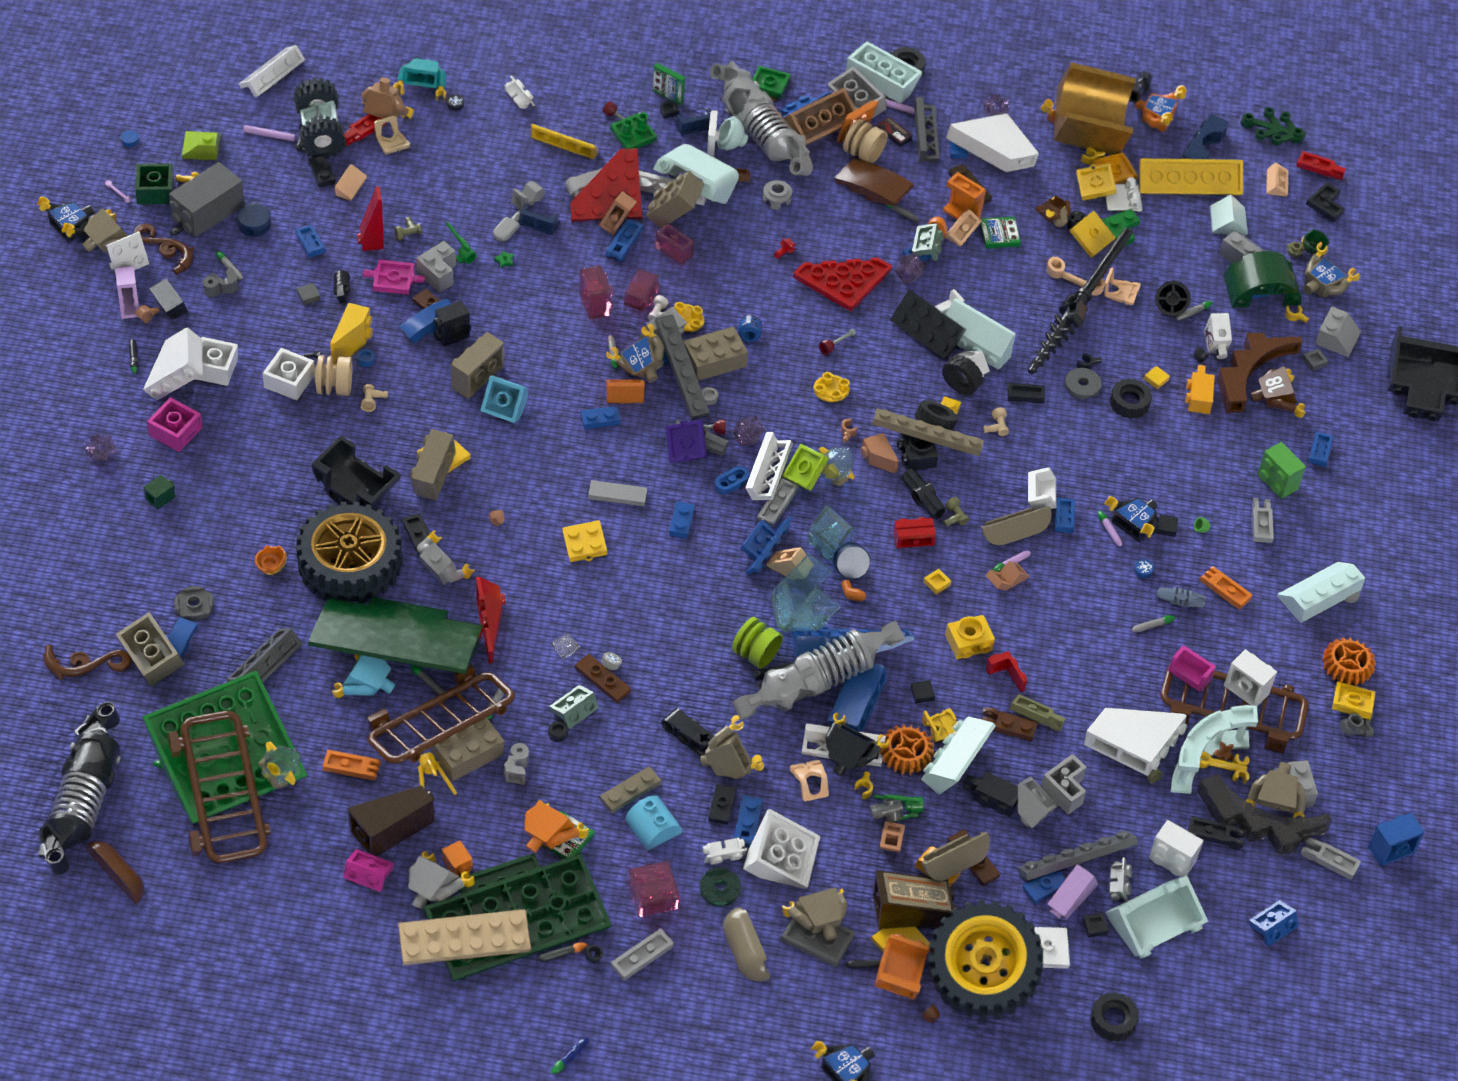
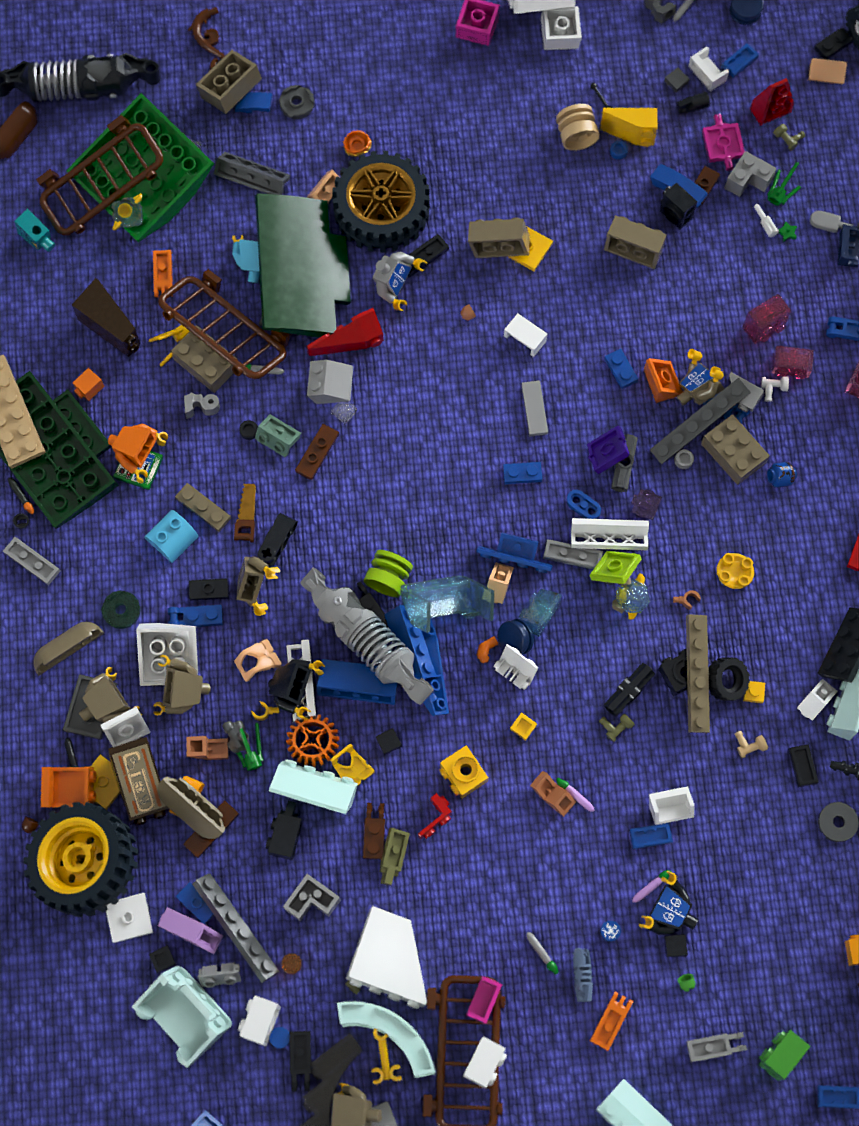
camera: 80 degrees right, 20 degrees up
(159, 492) = (403, 35): dark green brick -> none
(255, 869) = (34, 231): none -> teal torso
(288, 374) = (567, 89): white brick -> none
(306, 602) = (324, 188): none -> light nougat slope
(310, 269) = (707, 70): none -> white panel
(350, 478) = (465, 176): black cylinder -> none
(367, 870) = (61, 318): dark pink bracket -> none
(369, 404) = (577, 165): tan piece -> none
(434, 881) = (56, 370): light grey torso -> none
(490, 270) = (766, 222): none -> white axle
(504, 399) = (604, 278): medium azure brick -> none
(534, 644) = (329, 382): none -> light grey slope
(538, 475) = (526, 333): none -> white panel
(584, 541) = (467, 394): yellow plate -> none
(611, 343) = (712, 356): light grey piece -> none
(611, 661) = (336, 453): light grey tile -> none
(652, 754) = (246, 514): none -> piece
(653, 888) = (98, 552): clear pink brick -> none
(692, 315) = (775, 413): yellow dish -> none
(719, 427) = (646, 478): dark red hinge -> none
(732, 850) = (156, 609): white hinge -> none
(825, 841) = (181, 688): none -> dark tan torso
(827, 346) = (789, 555): dark red hinge -> none
(855, 899) = (125, 727): none -> white plate
(879, 453) = (666, 634): nougat slope -> none
(881, 566) = (518, 665): none -> white hinge
(914, 532) = (576, 690): red brick -> none
(968, 369) = (791, 693): black tyre -> none
(1017, 525) = (618, 788): dark tan brick -> none
(1033, 802) = (282, 872): light grey slope -> none
(1108, 1031) = (53, 986): black tyre -> none
(1122, 819) = (291, 963): none -> clear orange plate
(1126, 409) = (846, 867): black tyre -> none
(1224, 752) = (397, 1053): dark orange plant -> none

